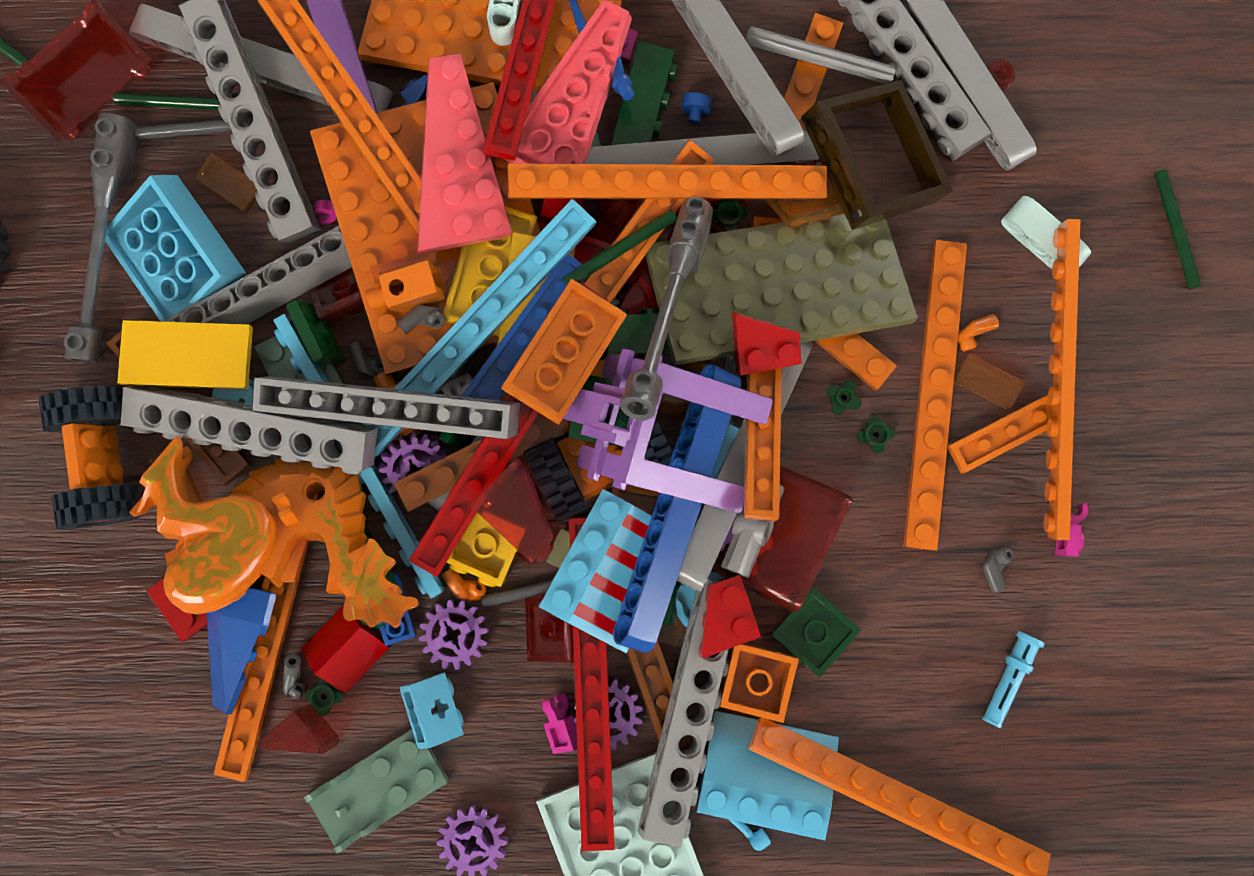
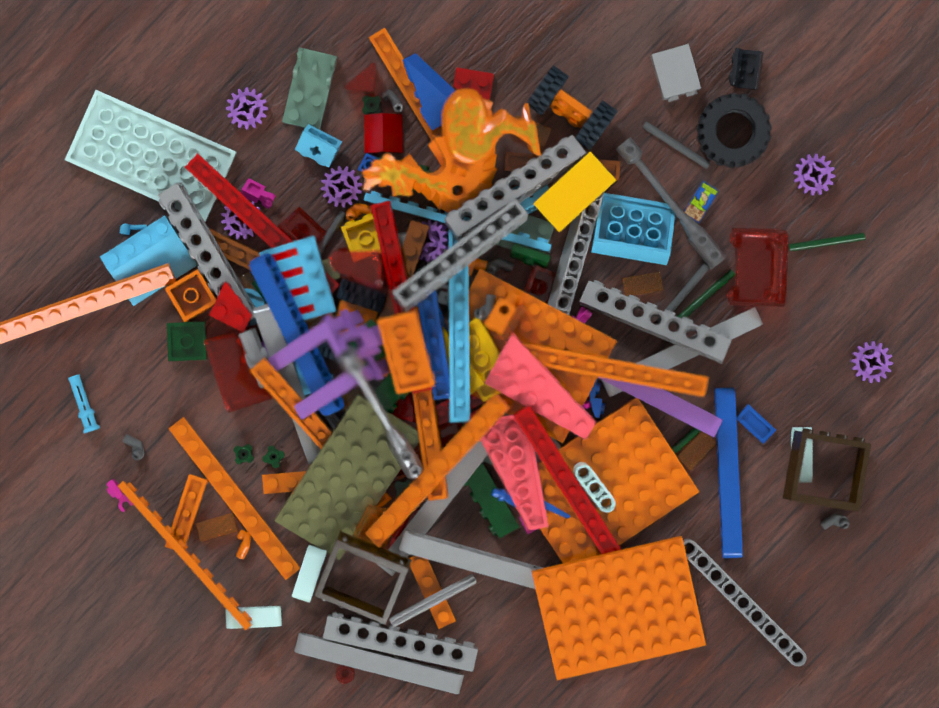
camera: 135 degrees right, 5 degrees up
(30, 301) = (677, 145): none -> dark grey bar
(65, 210) = (701, 201): none -> tile
(621, 247) = (430, 421): dark green bar -> none
(696, 106) = (466, 524): blue tile -> none
(763, 345) = (327, 439): red wing -> none
(932, 223) = (309, 573): none -> light aqua beam
(1177, 229) = (197, 679): dark green bar -> none

